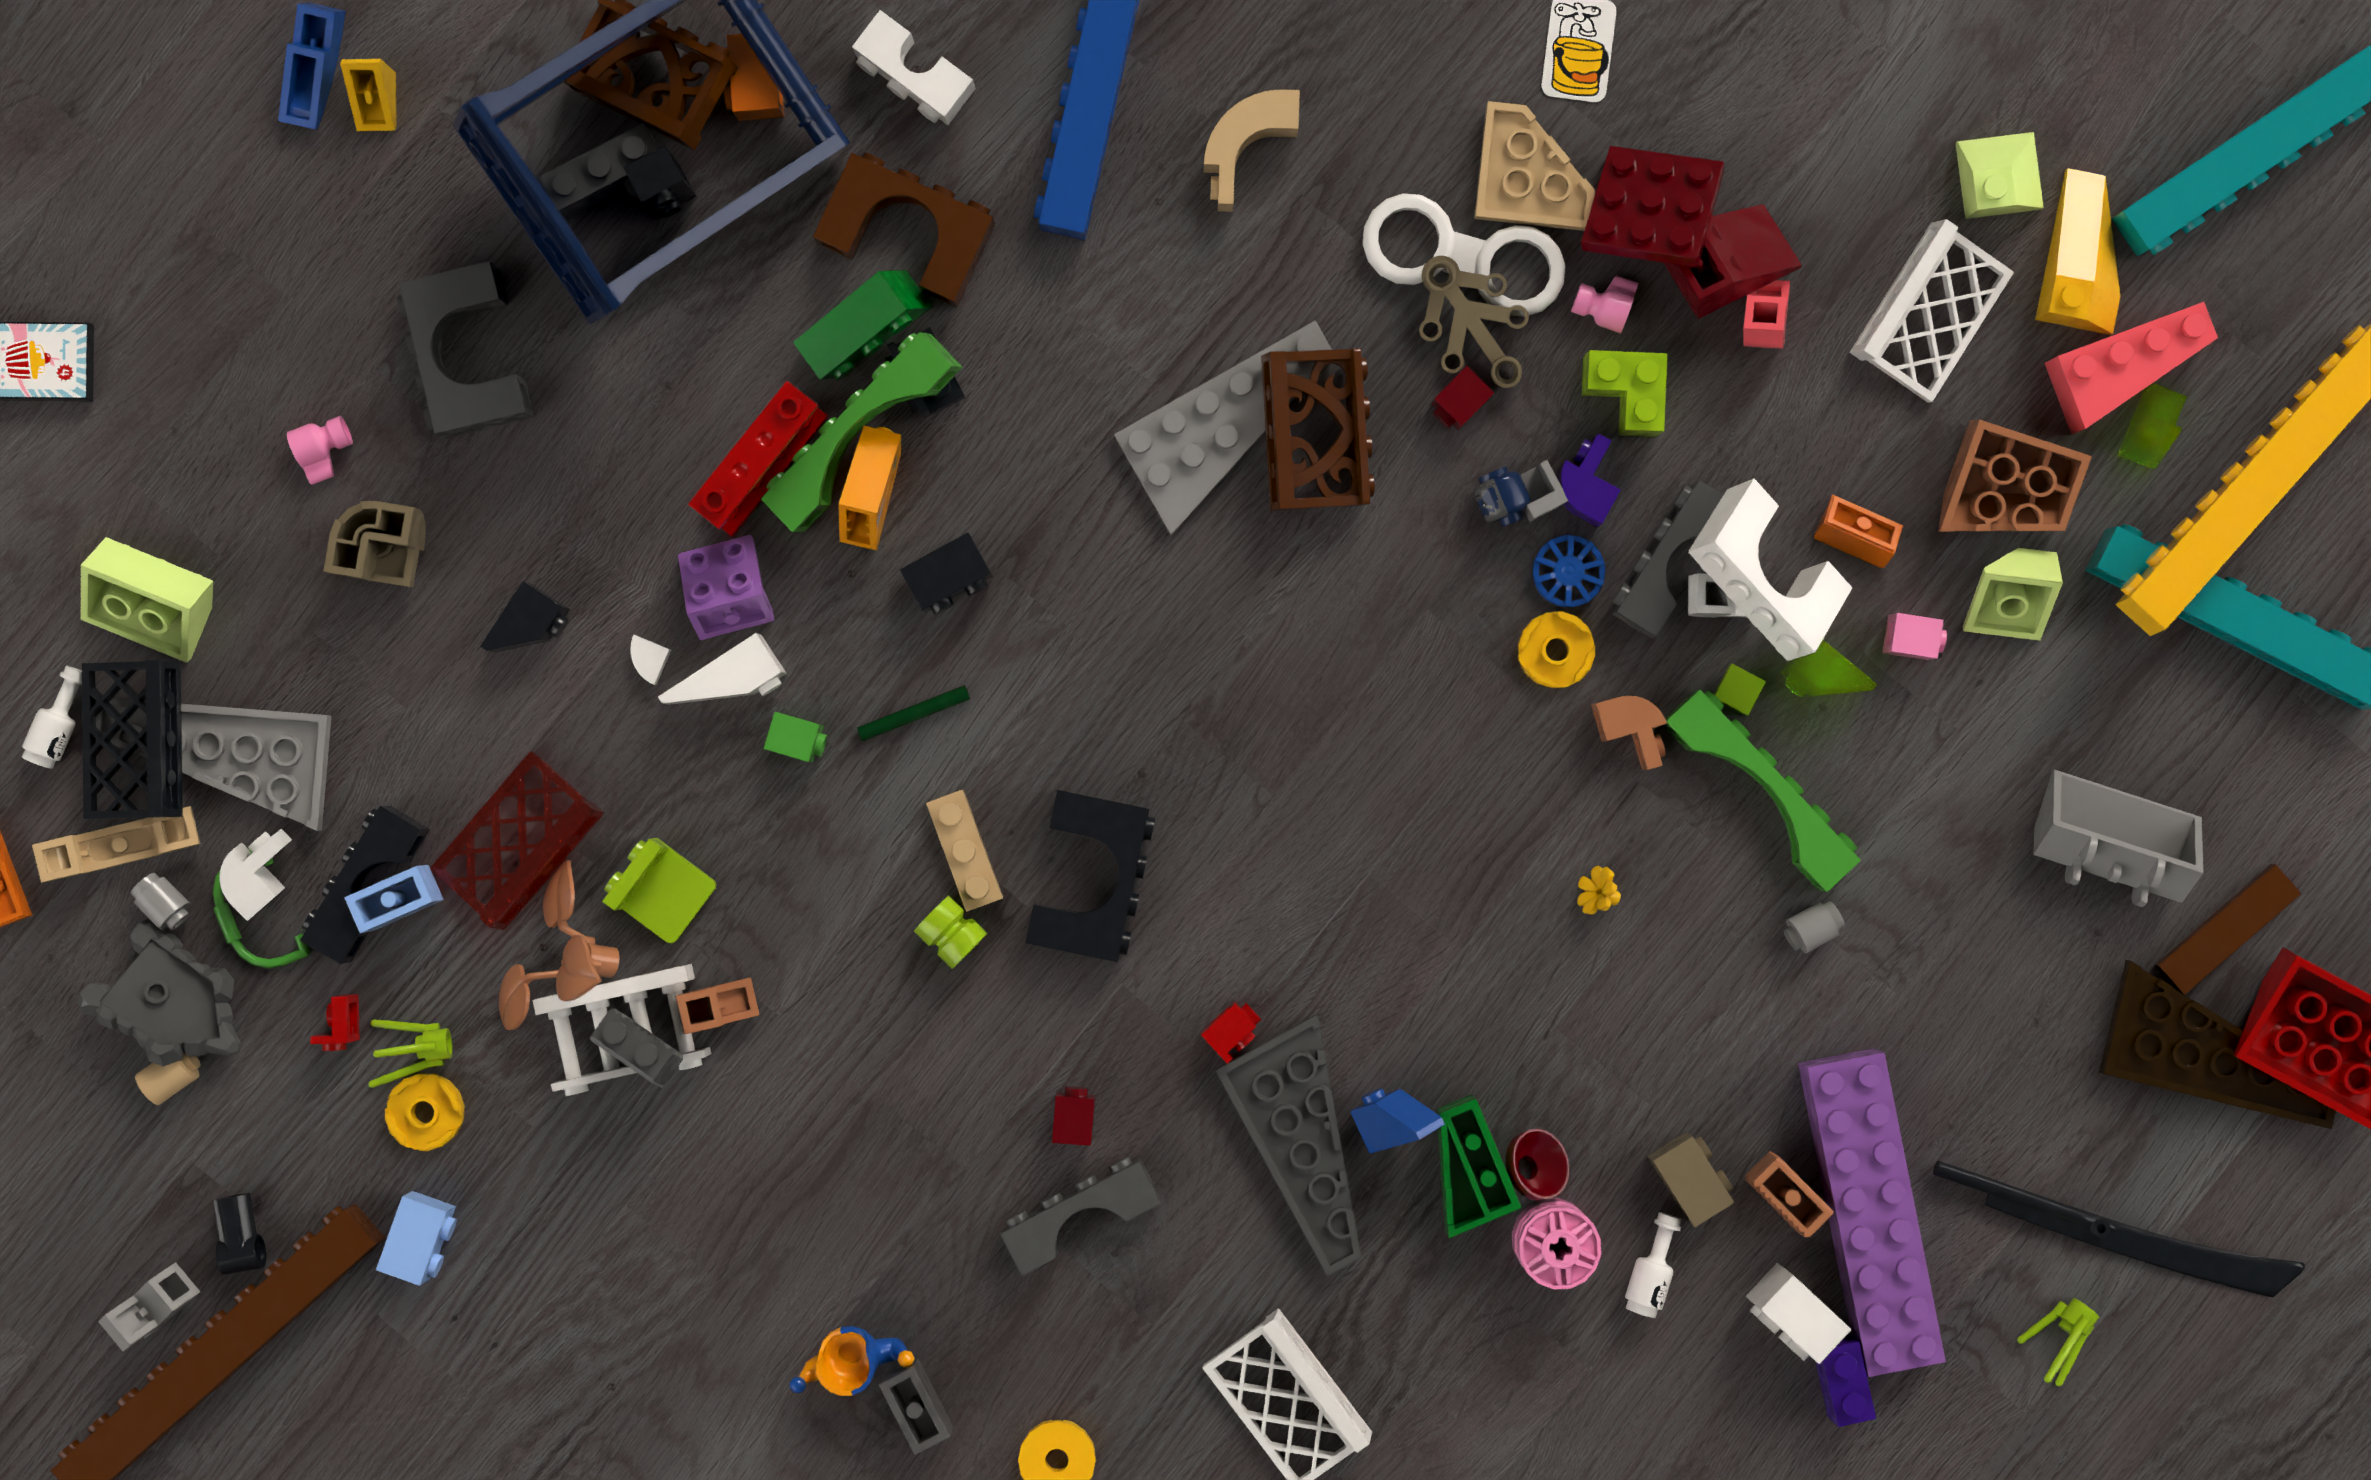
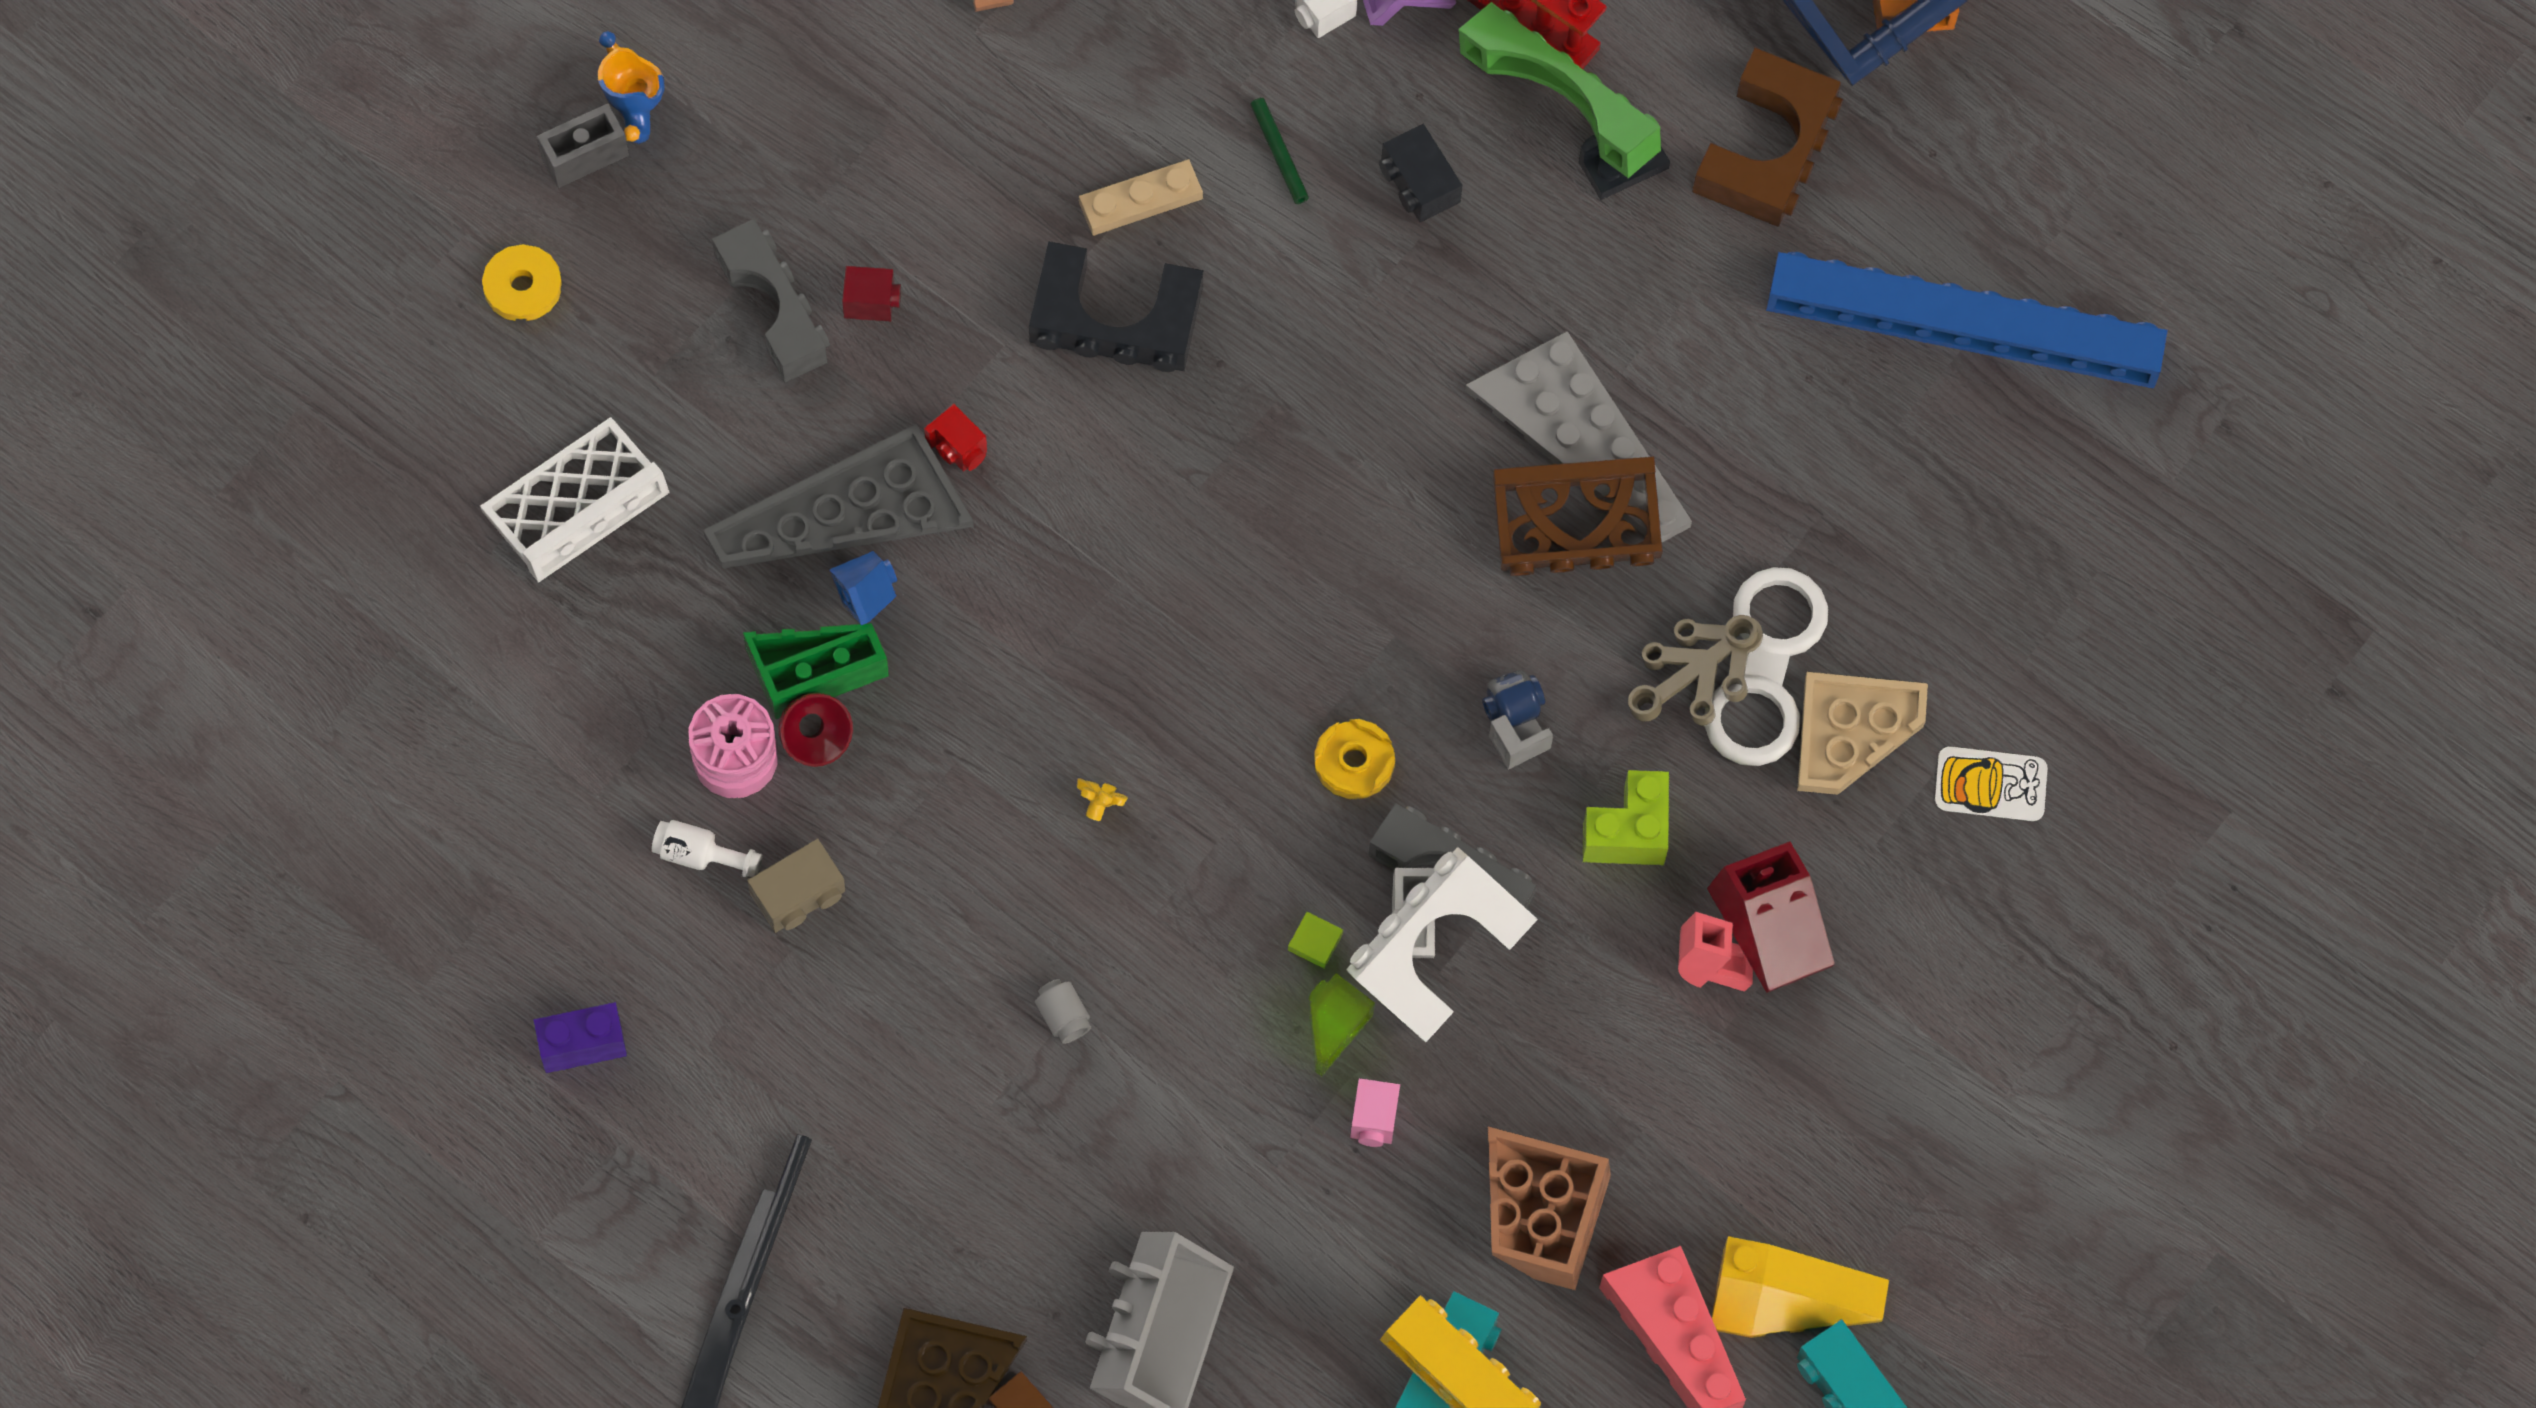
camera: 80 degrees right, 20 degrees down
(795, 737) = (1253, 39): bright green brick -> none
(862, 323) = (1673, 95): green wedge -> none
(869, 487) = (1506, 102): light orange slope -> none
(938, 91) = (1946, 119): white arch -> none
(950, 932) = (1063, 174): lime wheel -> none
(1255, 117) = (1883, 445): tan arch -> none
(1461, 399) = (1614, 659): dark red brick -> none
(1568, 571) = (1437, 769): blue wheel -> none
(1586, 493) = (1530, 774): dark purple brick -> none
(1608, 308) = (1716, 808): bright pink piece -> none
(1635, 717) = (1283, 827): nougat brick -> none
(1653, 206) = (1823, 836): dark red plate -> none
(1788, 1194) = (779, 978): nougat brick -> none
(1805, 1320) = (654, 981): white brick -> none
(1814, 846) = (1148, 1011): bright green arch -> none
(1858, 532) = (1487, 1062): orange slope -> none
(1873, 1210) = (759, 1066): medium lavender brick -> none
(1910, 286) = (1746, 1105): white fence -> none
(1999, 175) = (1876, 1206): yellowish green slope -> none
(2016, 595) = (1423, 1214): yellowish green slope -> none
(2078, 1322) = (635, 1282): lime plant -> none
(2153, 426) = (1610, 1368): clear neon green slope -> none

